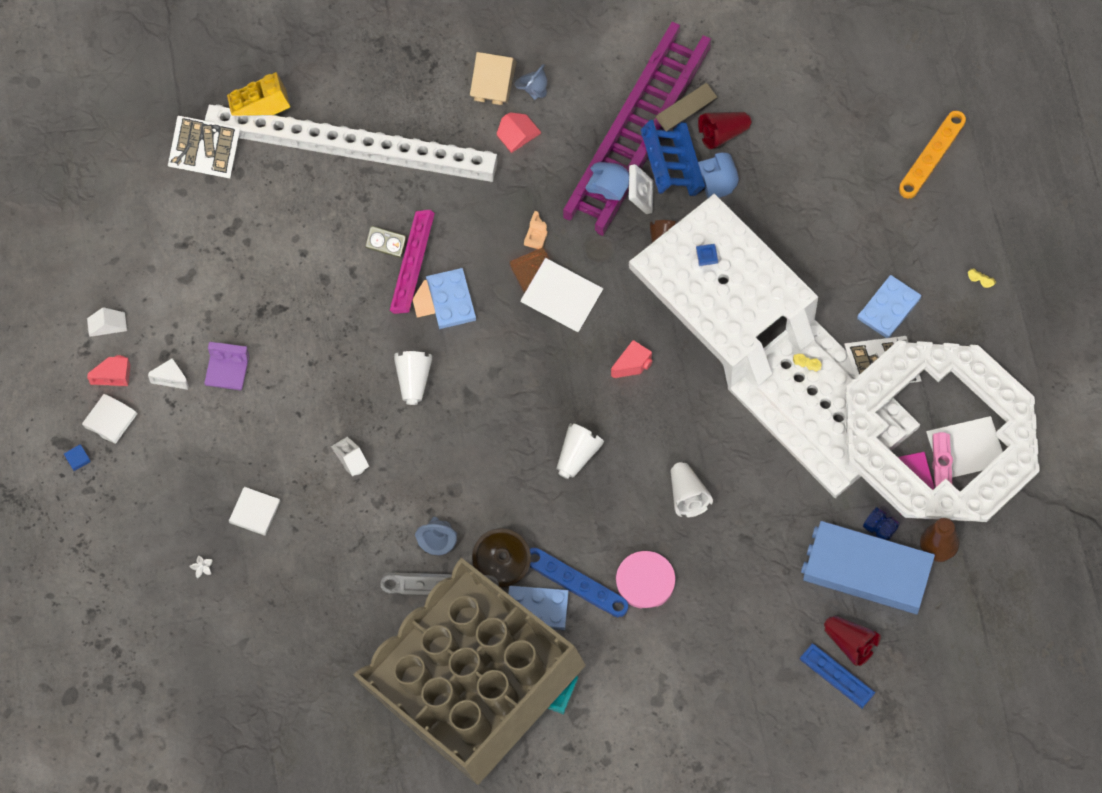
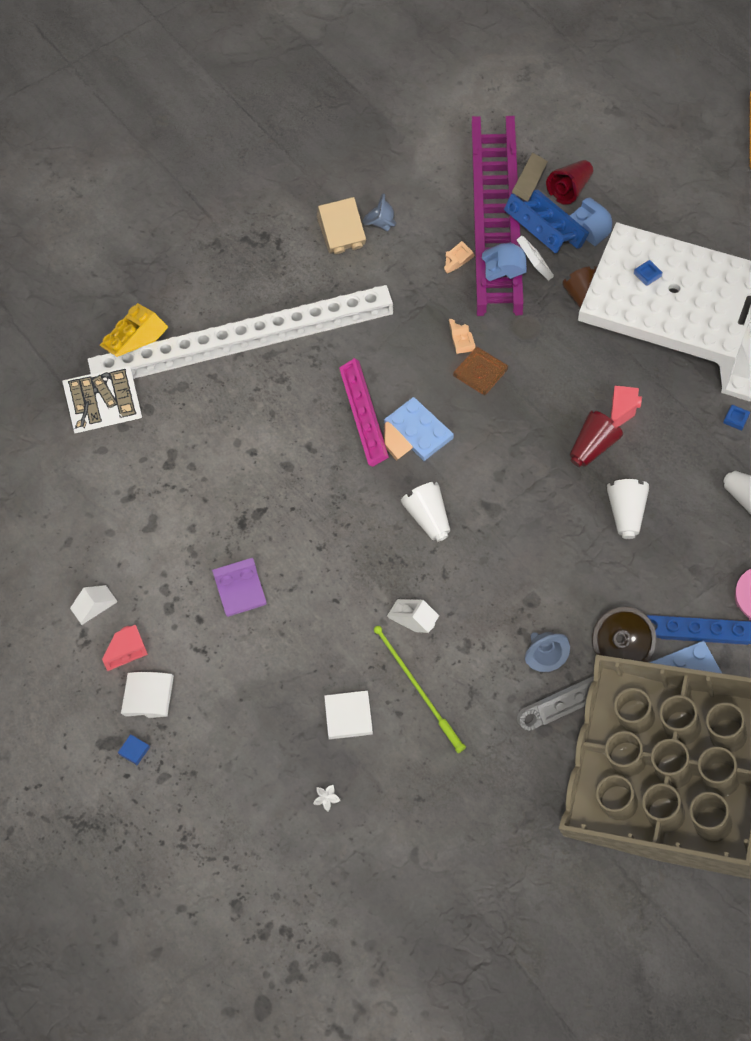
camera: 25 degrees left, 5 degrees down
(168, 375) = (186, 623): white slope -> none
(323, 553) = (456, 742): none -> lime piece
(386, 241) = (327, 406): slope -> none
(516, 130) = (388, 262): coral slope -> none
(561, 295) = (520, 379): white sticker -> none
(578, 154) = (457, 257): none -> light nougat slope
(585, 379) = (594, 438): none -> dark red cone
(724, 417) = (736, 417): none -> blue tile

